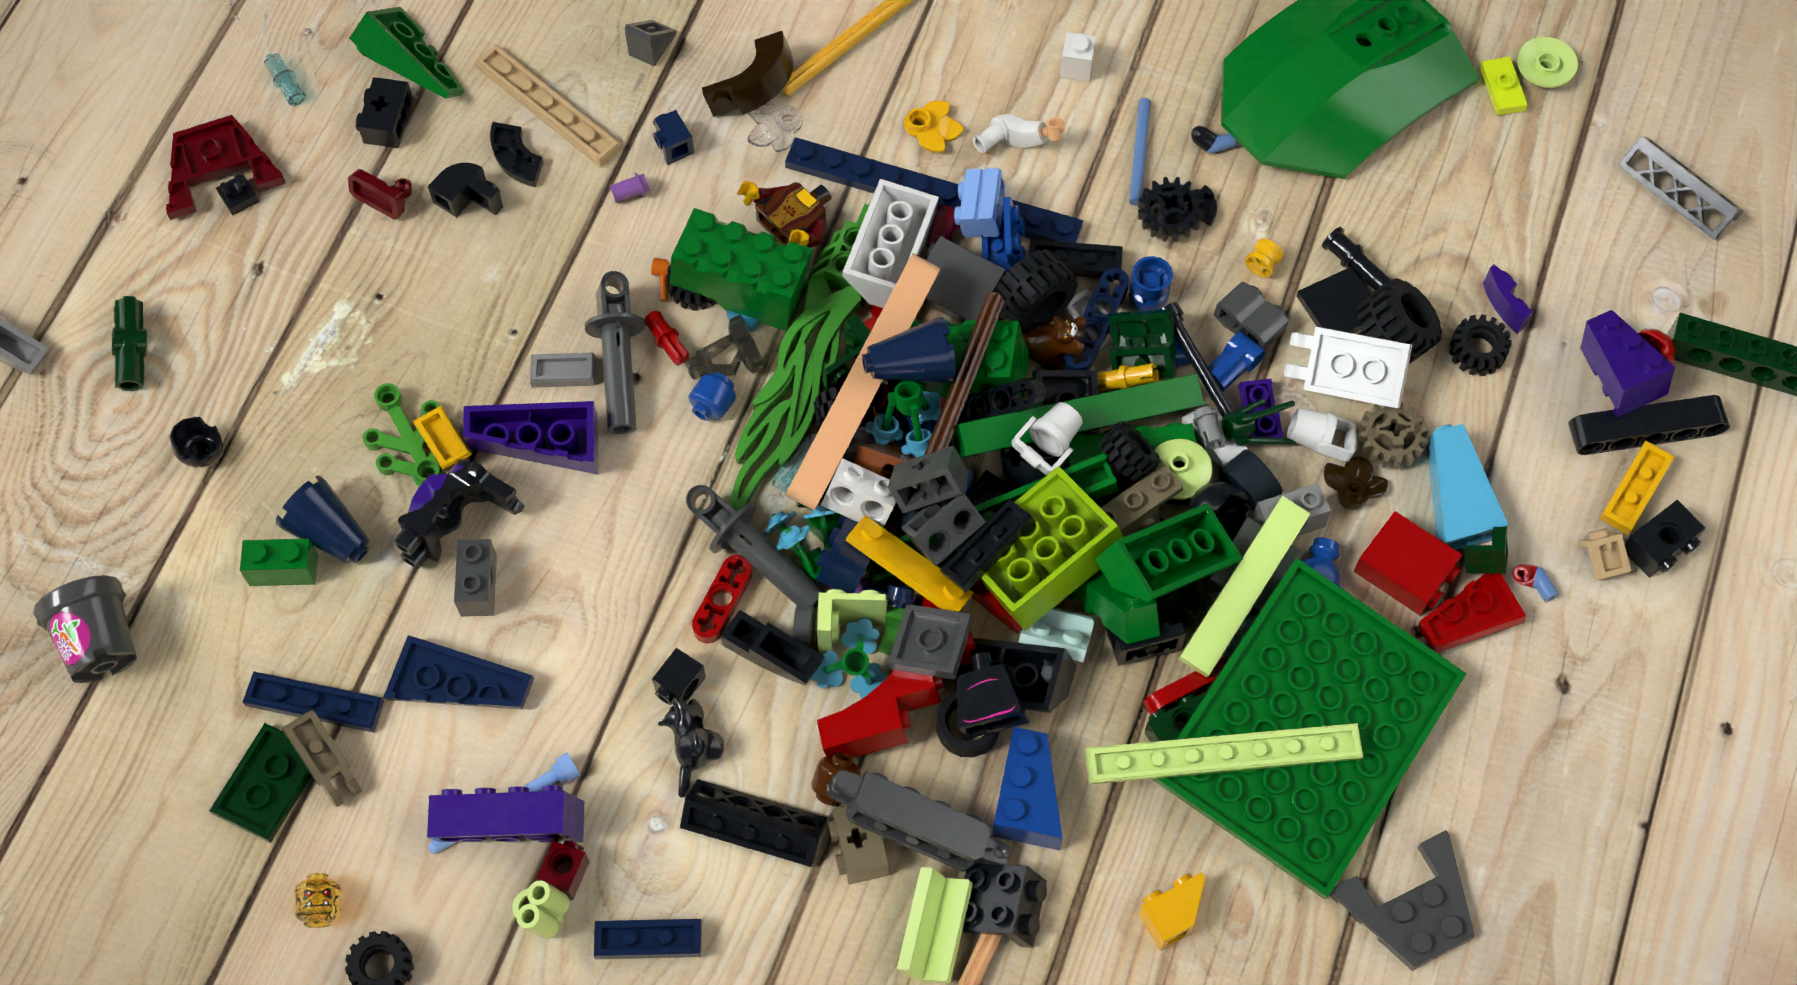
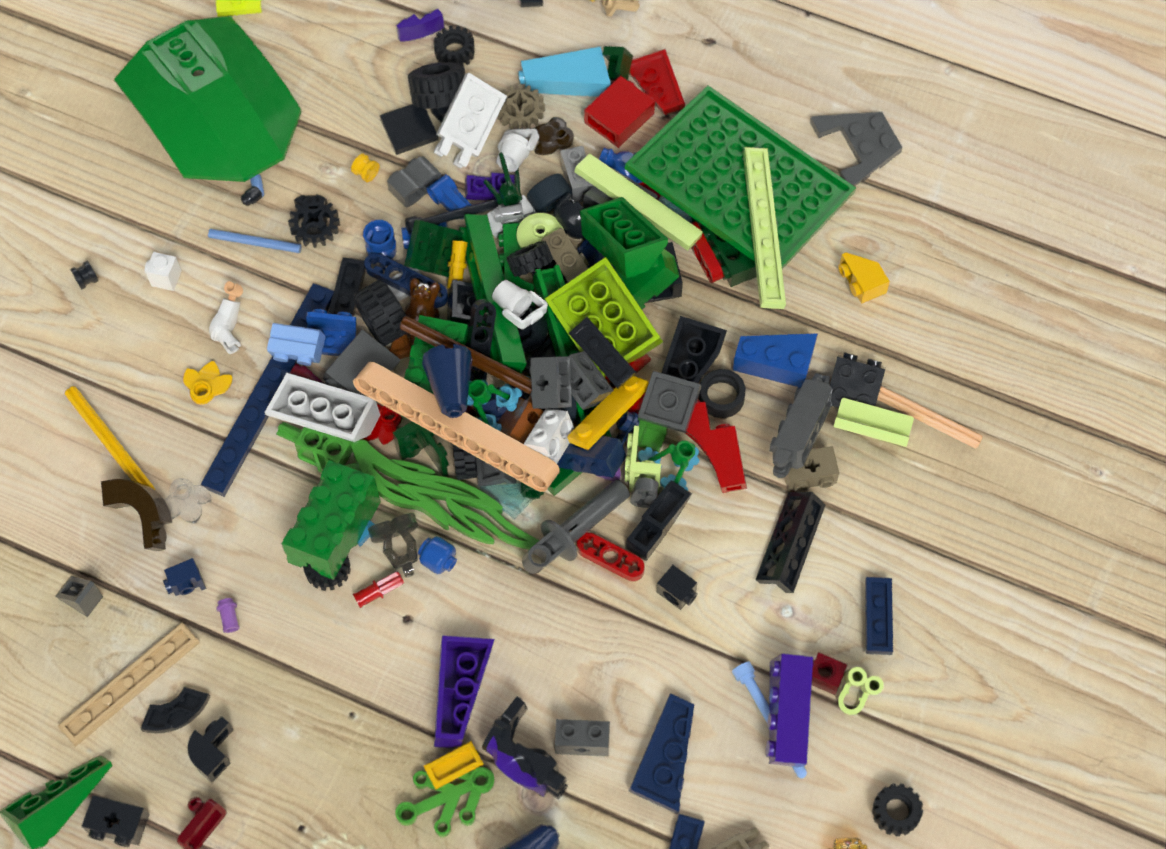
camera: 85 degrees left, 0 degrees up
(562, 370) = (394, 673): light grey tile -> none
(615, 327) = (363, 624): dark grey piece -> none
(659, 268) = (311, 591): orange hand -> none
(693, 742) = (731, 576): black animal -> none
(789, 211) = (279, 487): torso -> none
(793, 535) = (580, 488): plant -> none
(825, 771) = (762, 480): reddish brown head -> none
(988, 699) = (715, 367): black torso -> none
(1061, 630) = (665, 325): light aqua bracket -> none
(1353, 256) = (371, 113): black pin -> none
(1535, 578) = (633, 42): arm -> none

